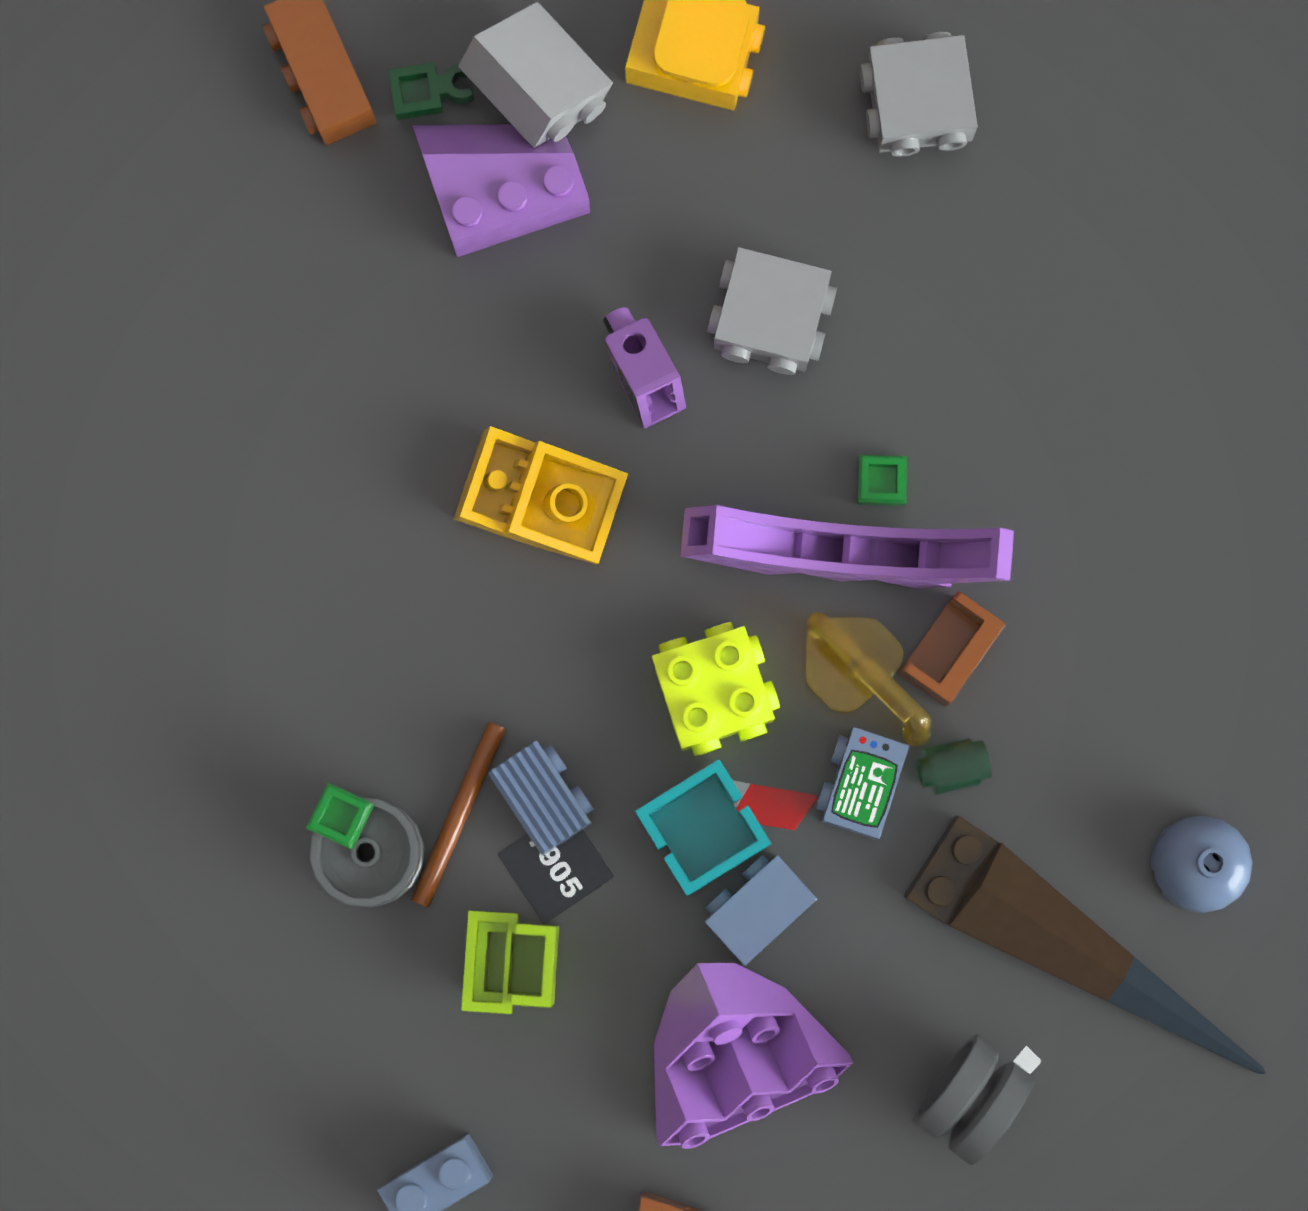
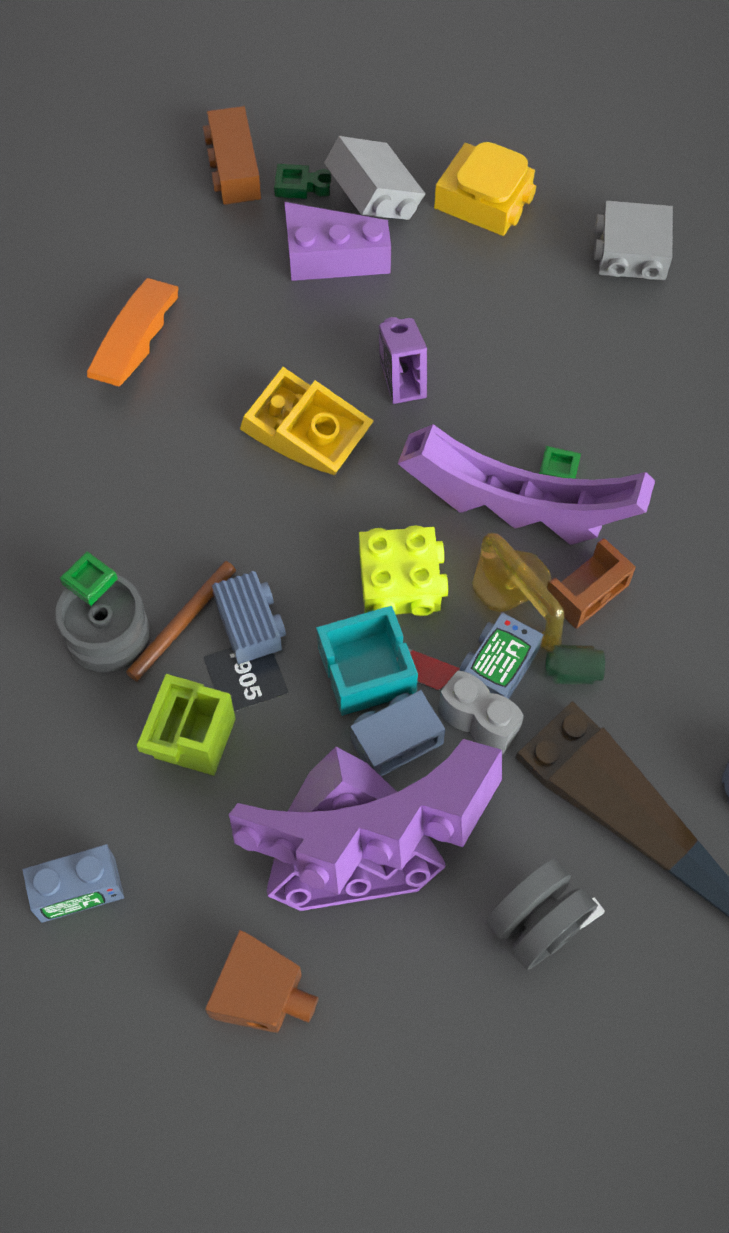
camera: 10 degrees right, 20 degrees down
(270, 406) = (131, 332): none -> orange slope
(771, 311) = (502, 341): light grey brick -> none
(781, 1054) = (386, 830): none -> medium lavender arch
(864, 865) = (473, 709): none -> light grey brick

